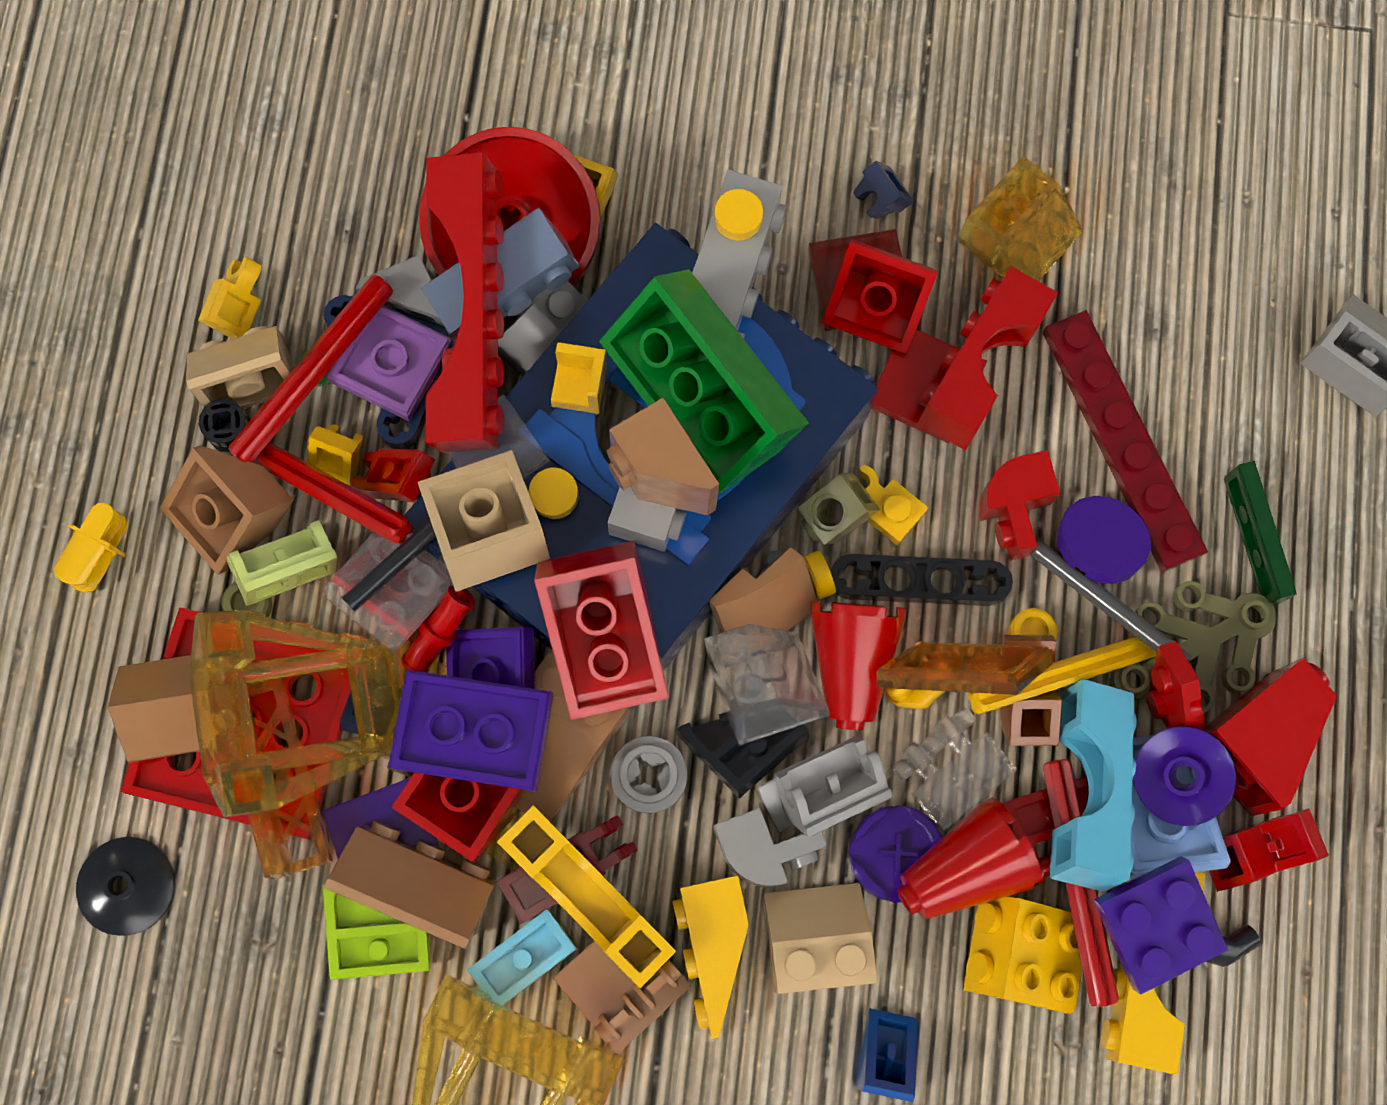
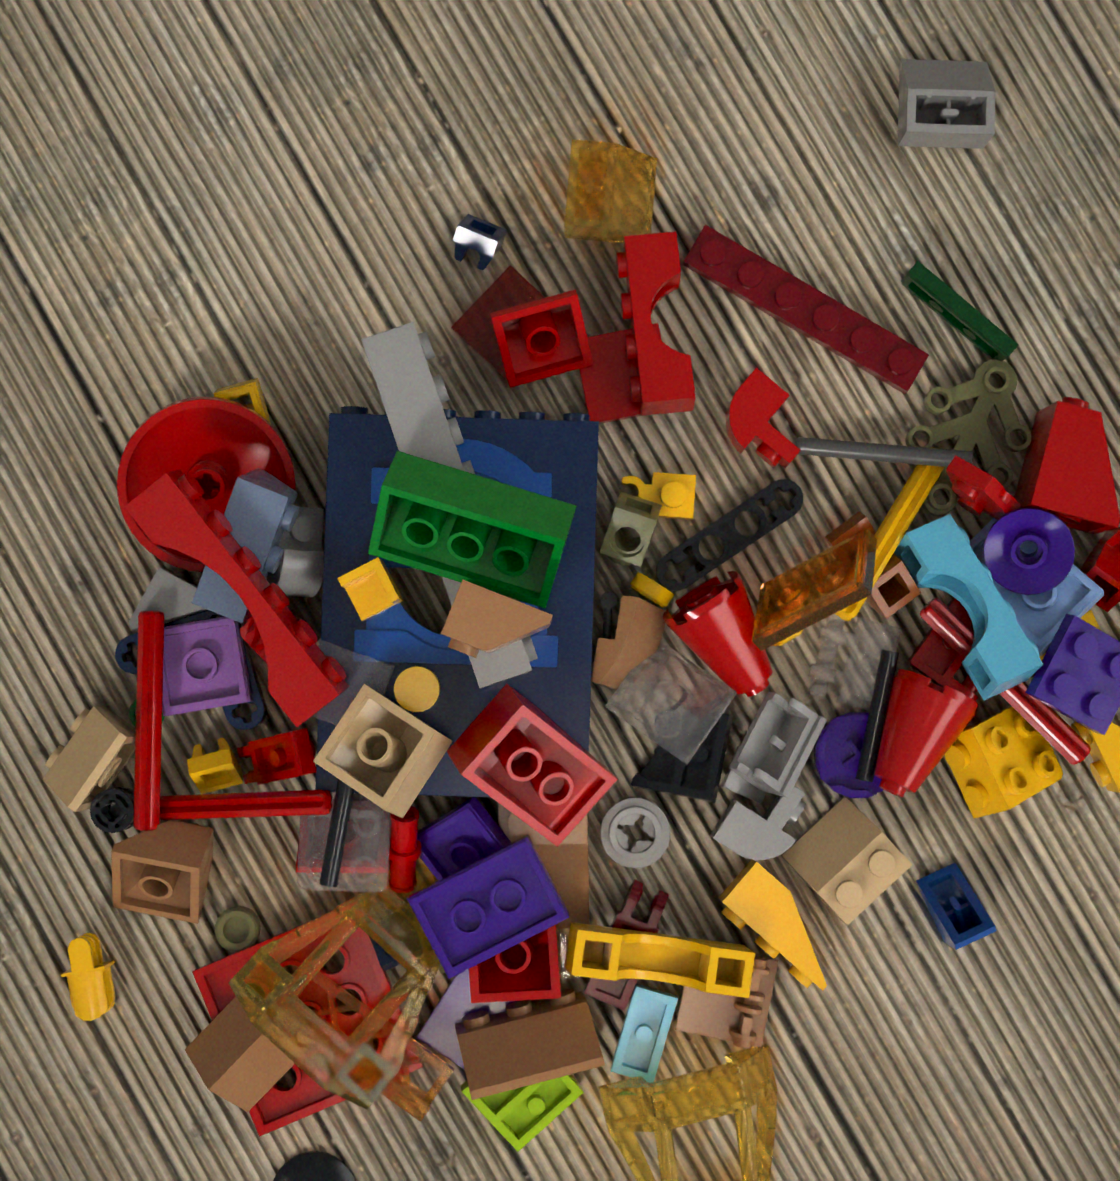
camera: 35 degrees left, 10 degrees up
(229, 303) = (40, 712): yellow plate -> none
(283, 564) = (242, 880): yellowish green hinge -> none
(738, 214) = (398, 373): yellow tile -> none
(941, 825) = (877, 715): none -> black bar
(1033, 622) = (837, 509): yellow tile -> none
(1103, 539) = (845, 403): dark purple tile -> none

